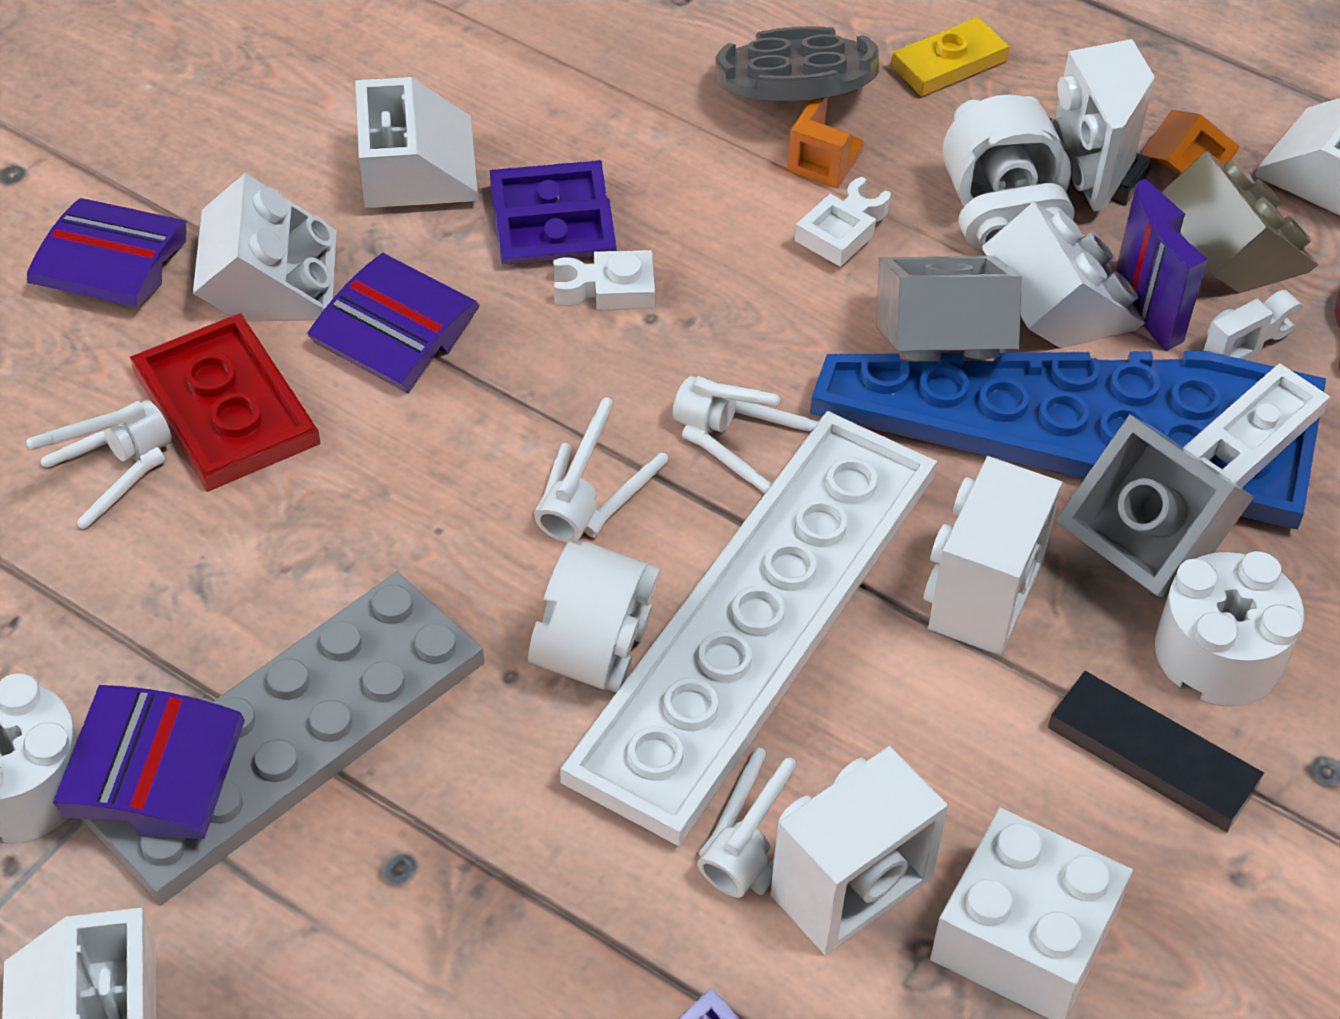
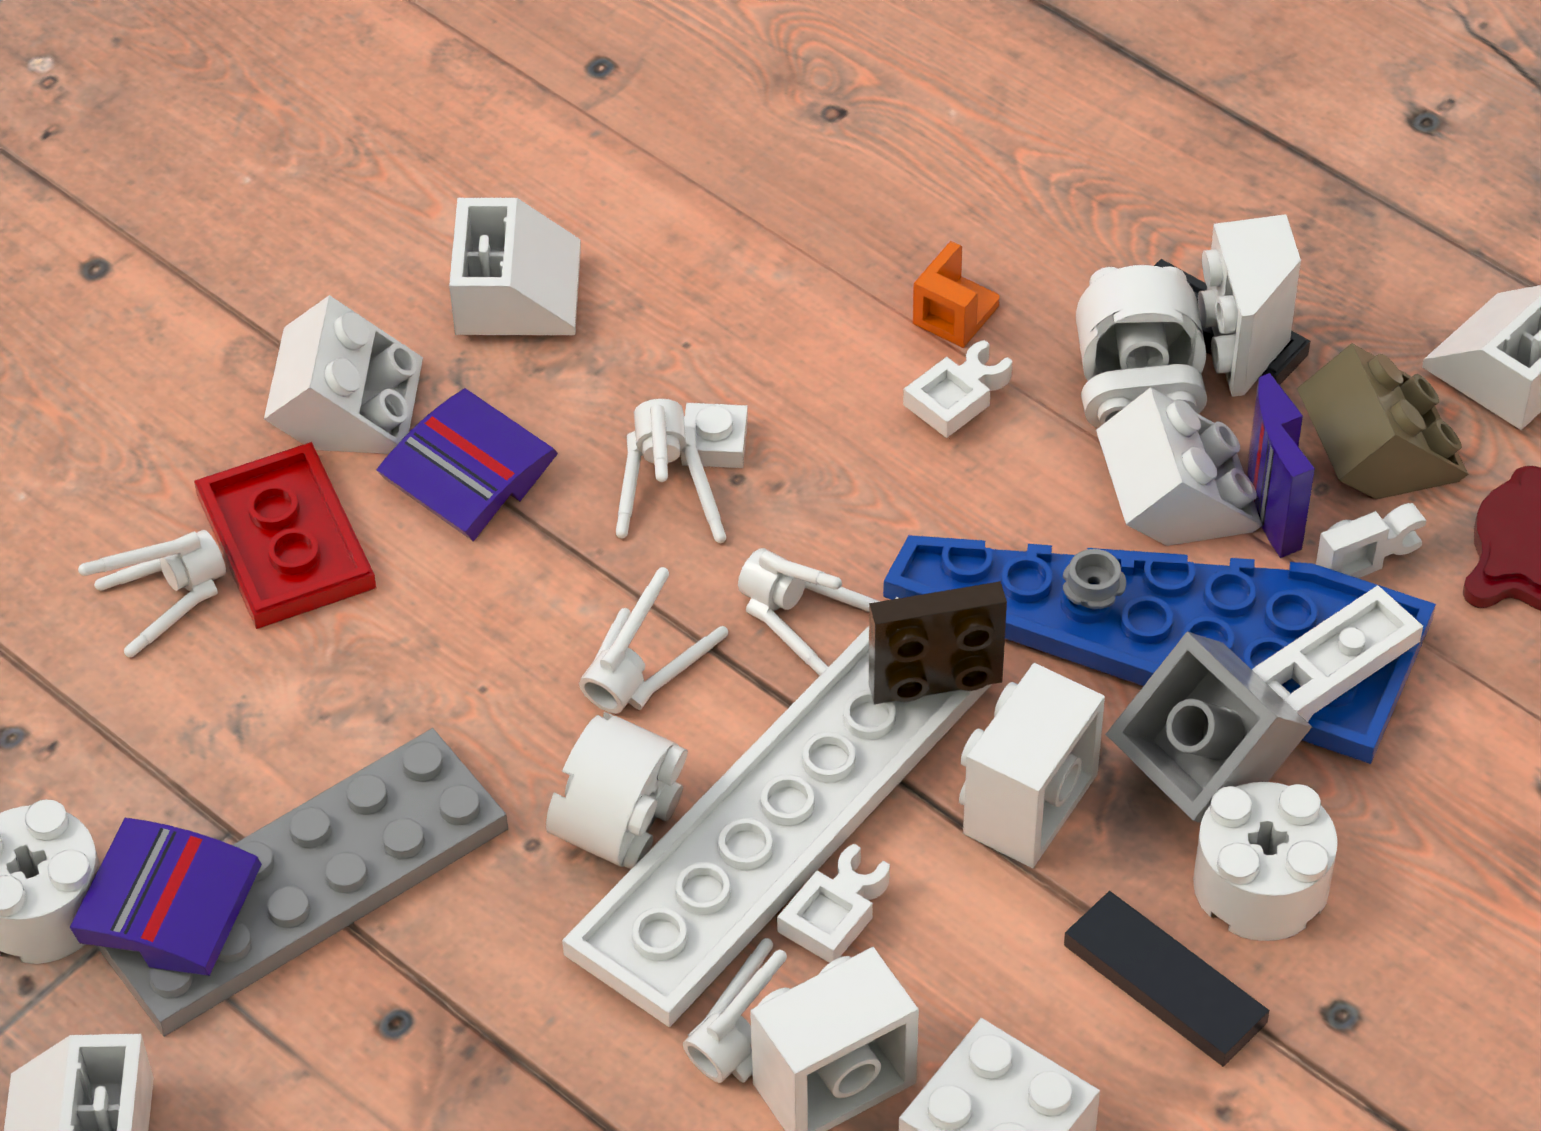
camera: 10 degrees right, 0 degrees up
(106, 252) = (183, 365): dark purple slope -> none
(551, 212) = (649, 353): dark purple slope -> none
(580, 284) = (659, 439): none -> white plant
(797, 64) = (938, 206): dark grey tile -> none
(821, 714) = (834, 911): none -> white plate
(885, 446) = (936, 643): none -> dark brown plate
(948, 305) = (1041, 493): light grey brick -> none
(949, 56) = (1114, 203): yellow plate -> none
(1012, 379) = (1094, 567): none -> light grey plate
(1185, 138) = (1350, 321): orange panel -> none

